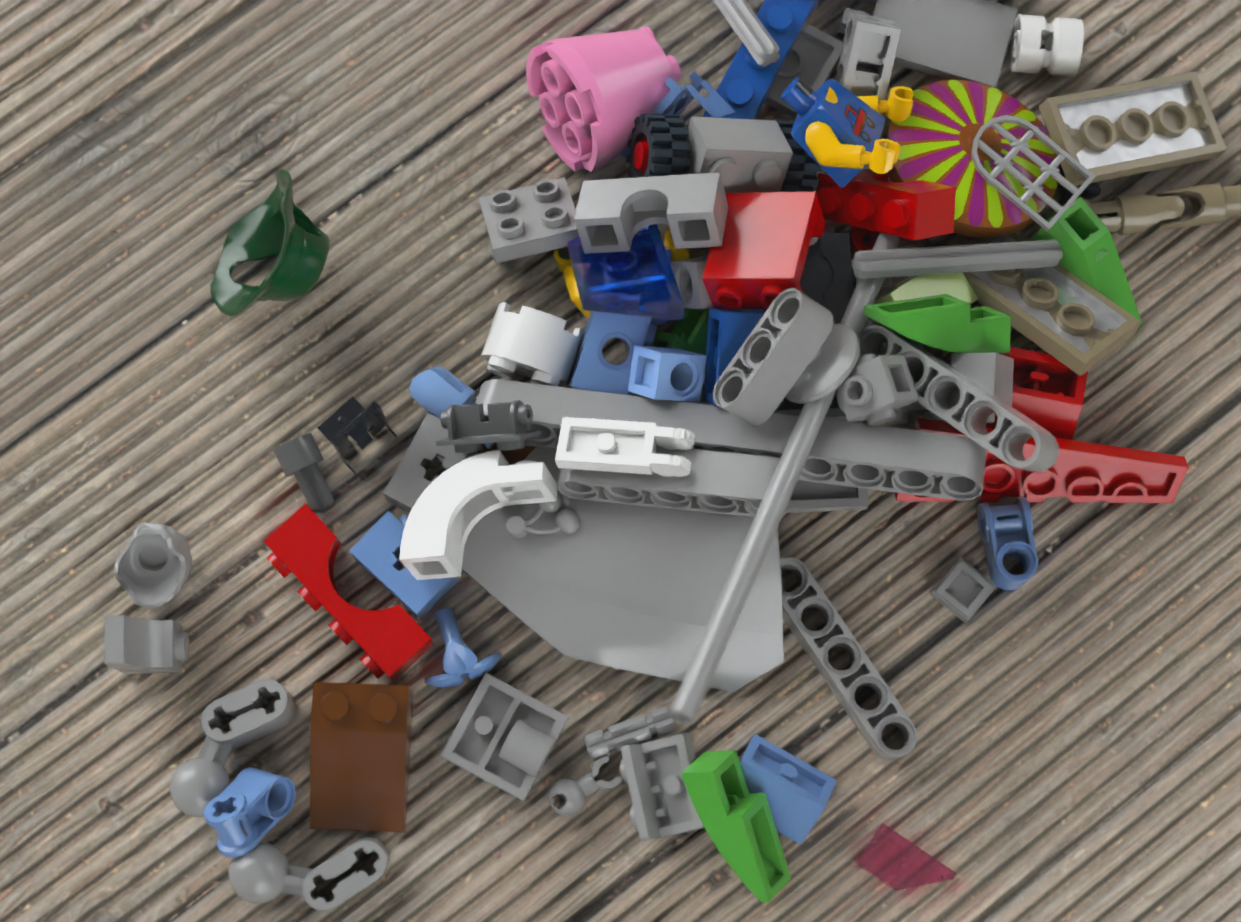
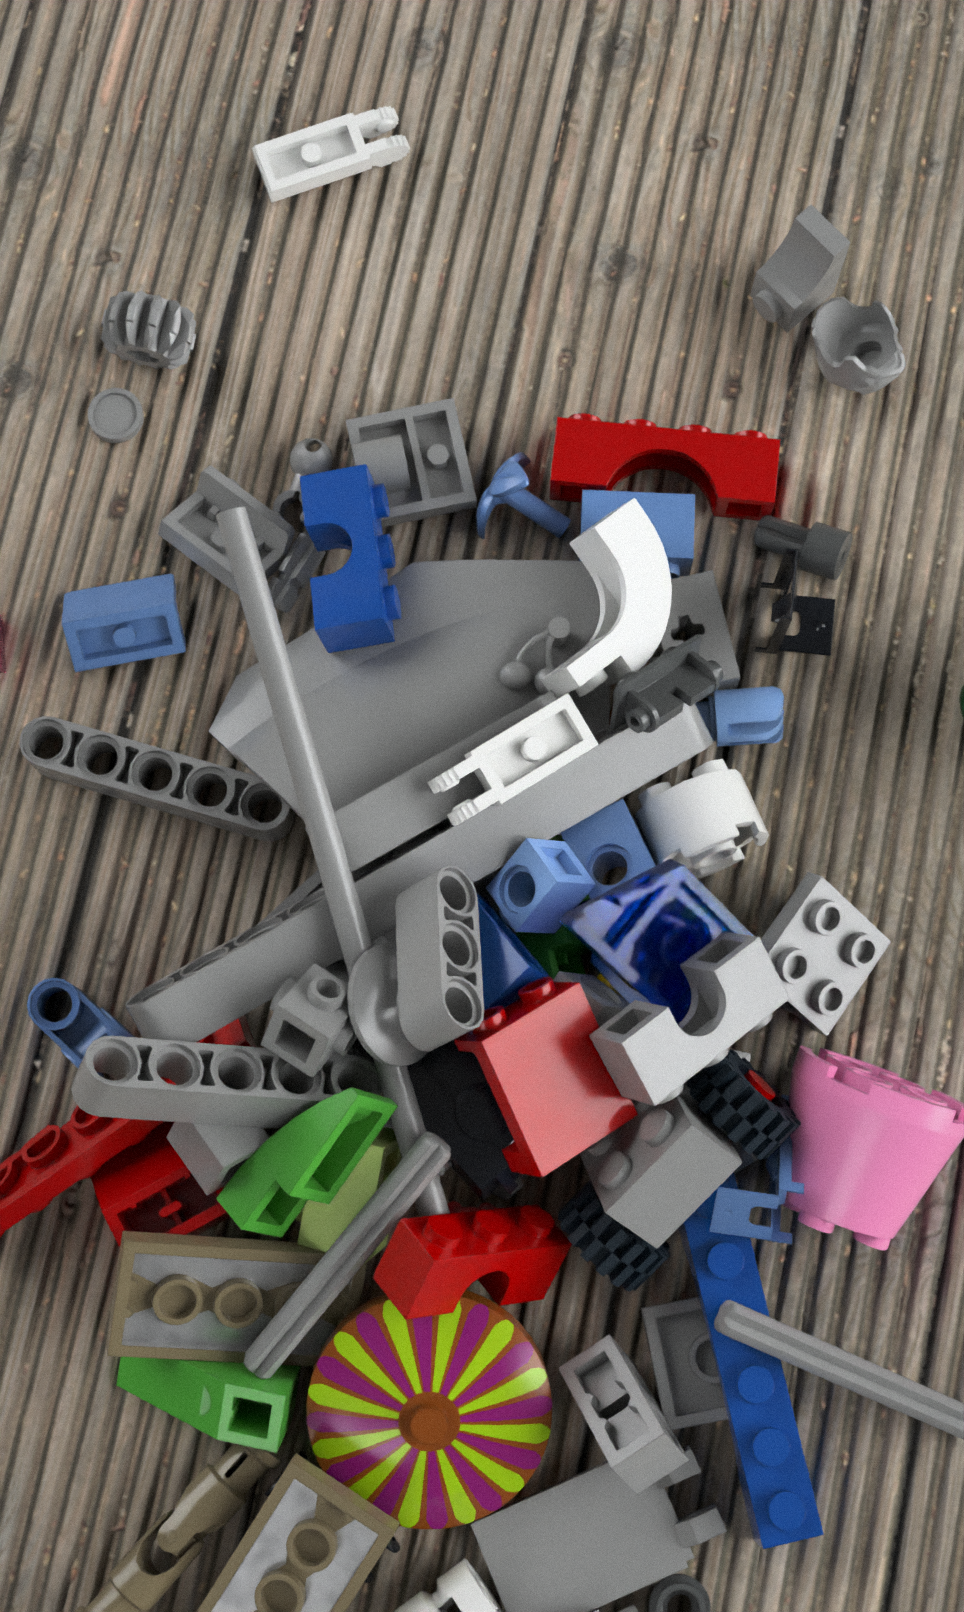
camera: 145 degrees right, 0 degrees up
(205, 777) = (640, 210): light grey beam -> none
(250, 807) = (580, 220): medium blue piece -> none
(266, 874) = (519, 184): light grey beam -> none
(360, 756) = (528, 348): reddish brown slope -> none
(577, 721) = (356, 602): none -> blue arch
(738, 822) = (134, 552): bright green slope -> none
(844, 128) = (581, 1296): torso -> none
(963, 590) = (92, 949): light grey tile -> none
(1048, 170) = (332, 1442): light grey window -> none

